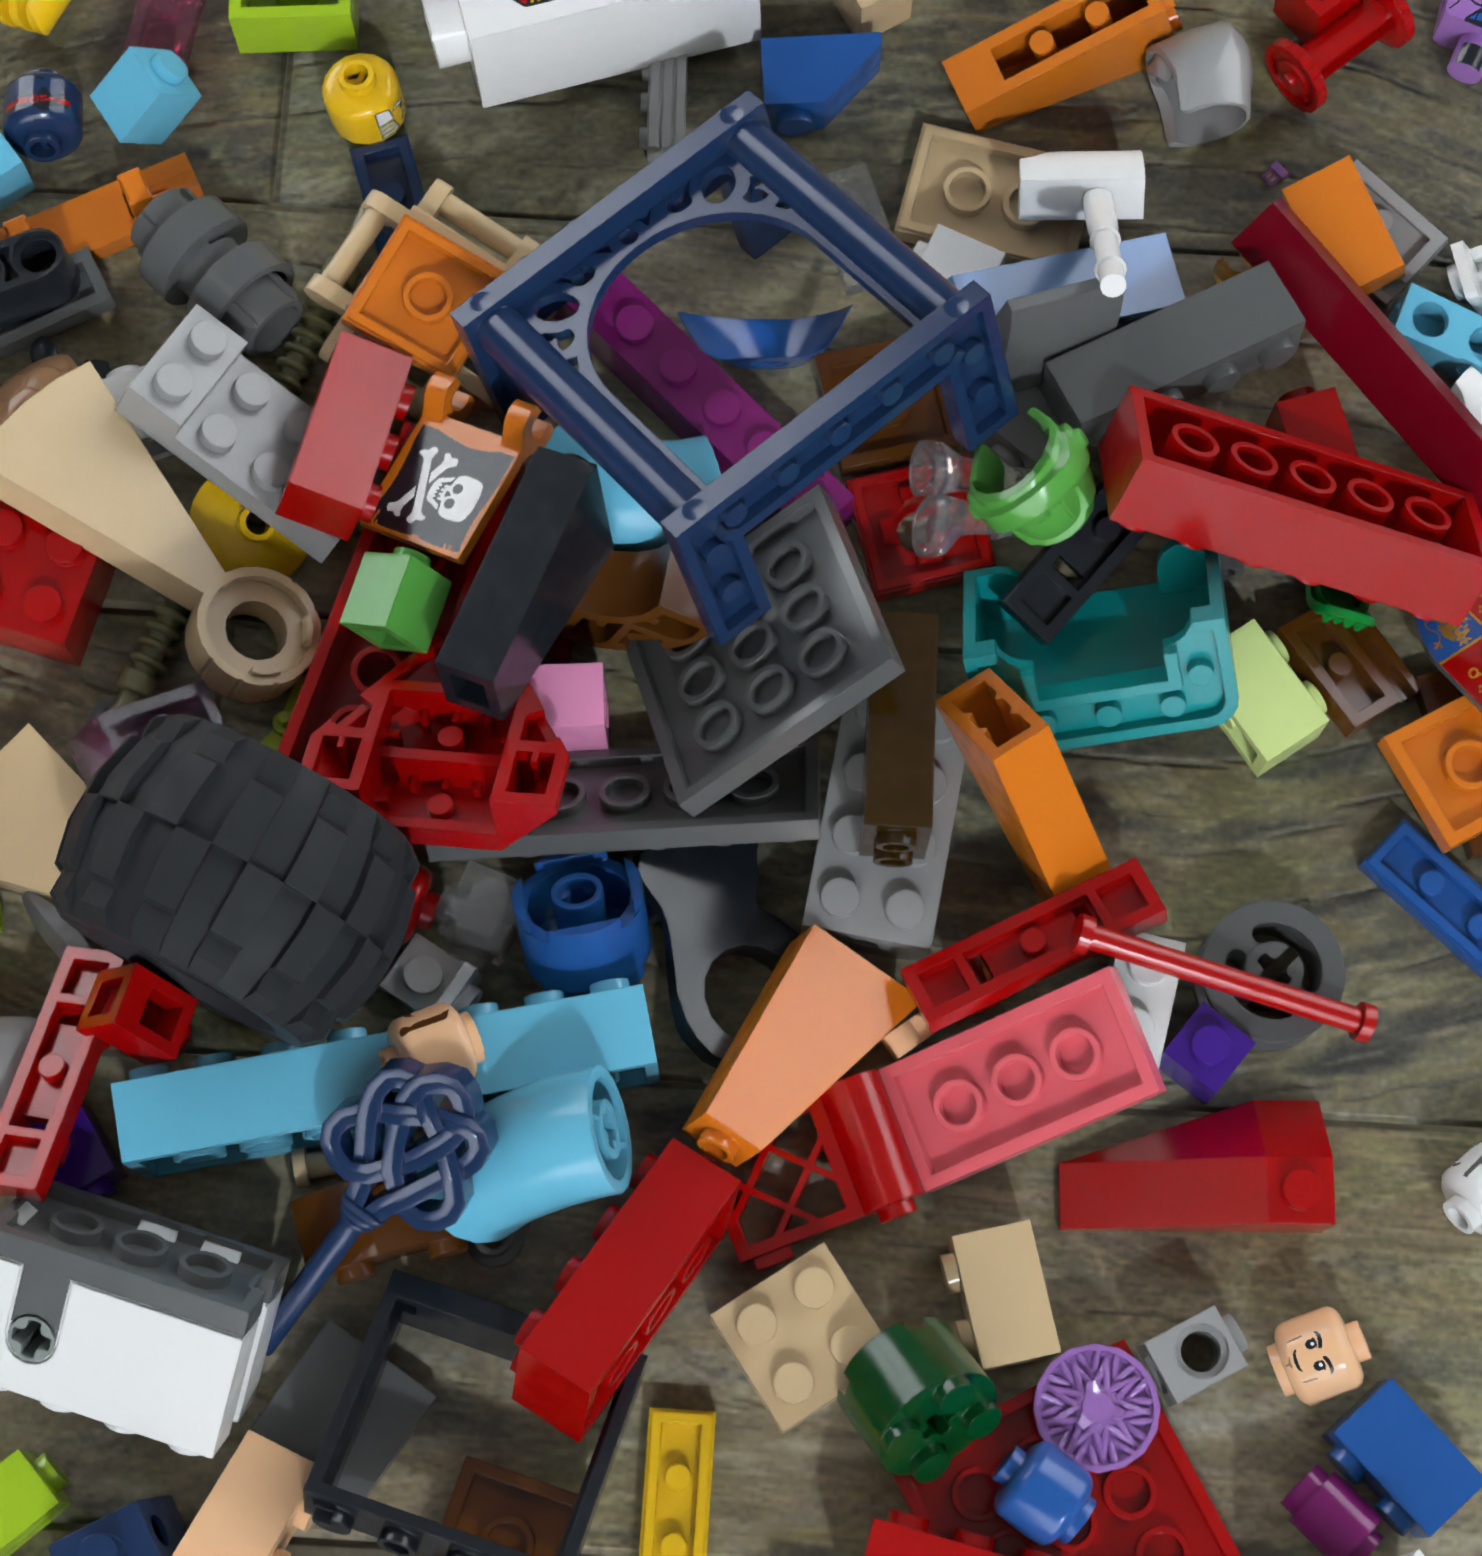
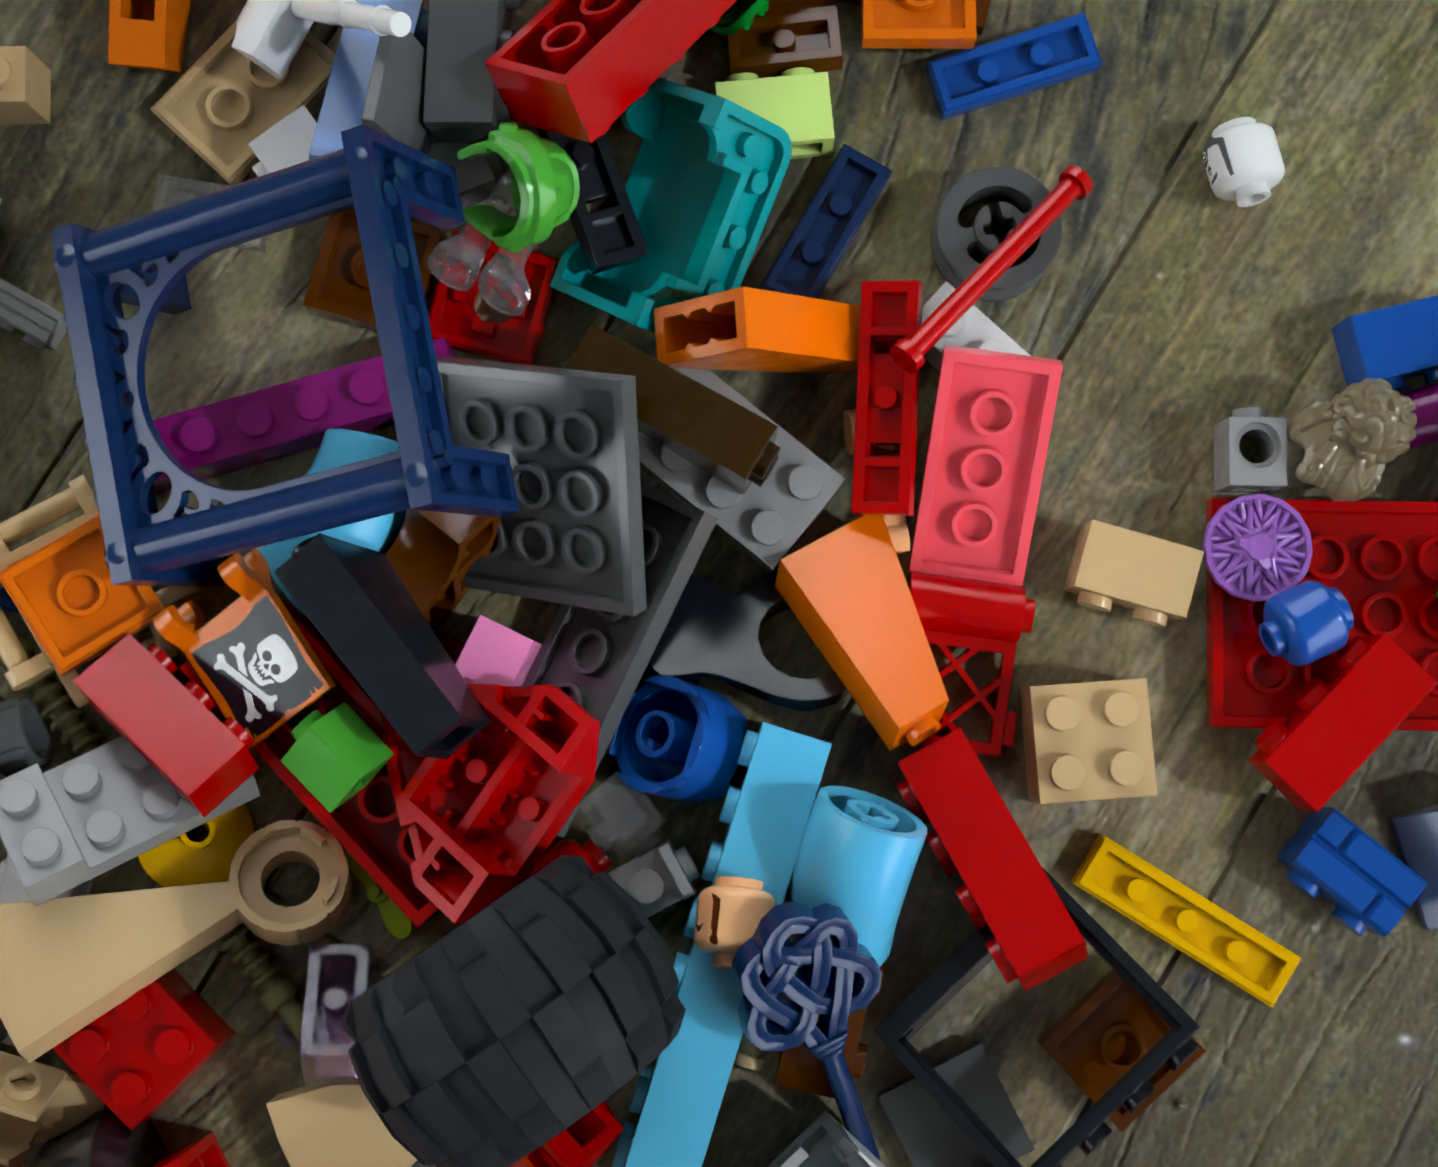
camera: 60 degrees left, 10 degrees up
(764, 342) = (267, 336): blue piece -> none
(814, 77) = (59, 173): blue slope -> none
(918, 1398) = (1189, 679): dark green brick -> none
(1180, 809) = (828, 225): none -> dark blue tile
(1205, 1053) = (1032, 313): dark purple brick -> none
(1223, 1172) = (1124, 351): red wedge -> none
(1263, 1446) = (1353, 438): none -> dark tan hair
(1318, 1356) = (1299, 360): light nougat head -> none

